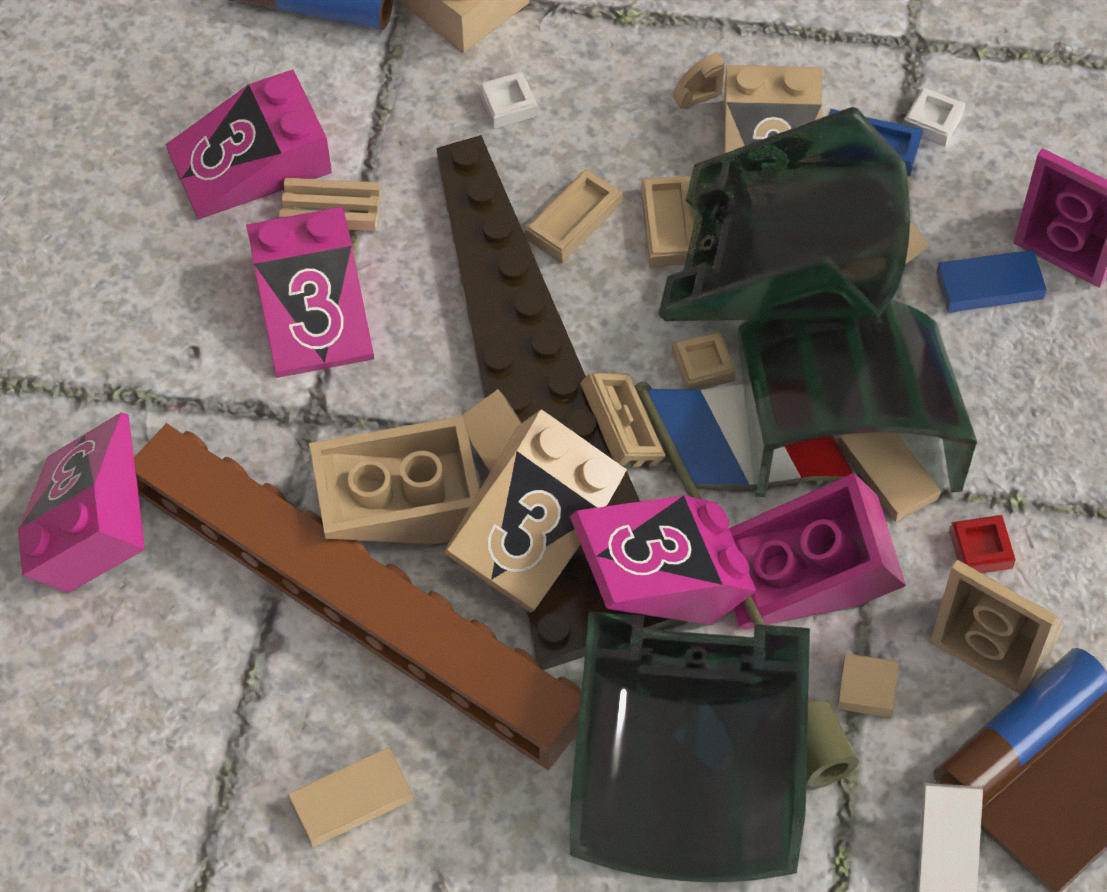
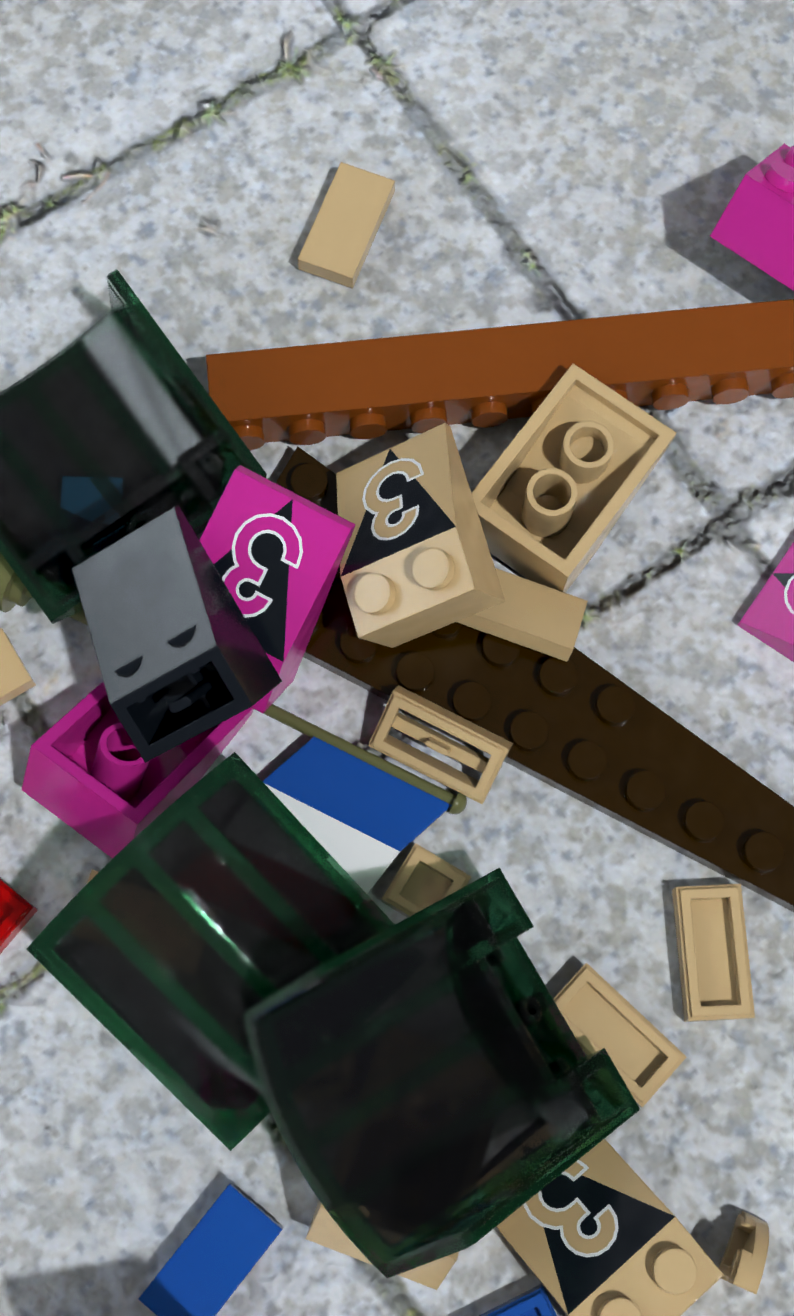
camera: 135 degrees right, 15 degrees up
(747, 538) = (169, 636): none -> black slope

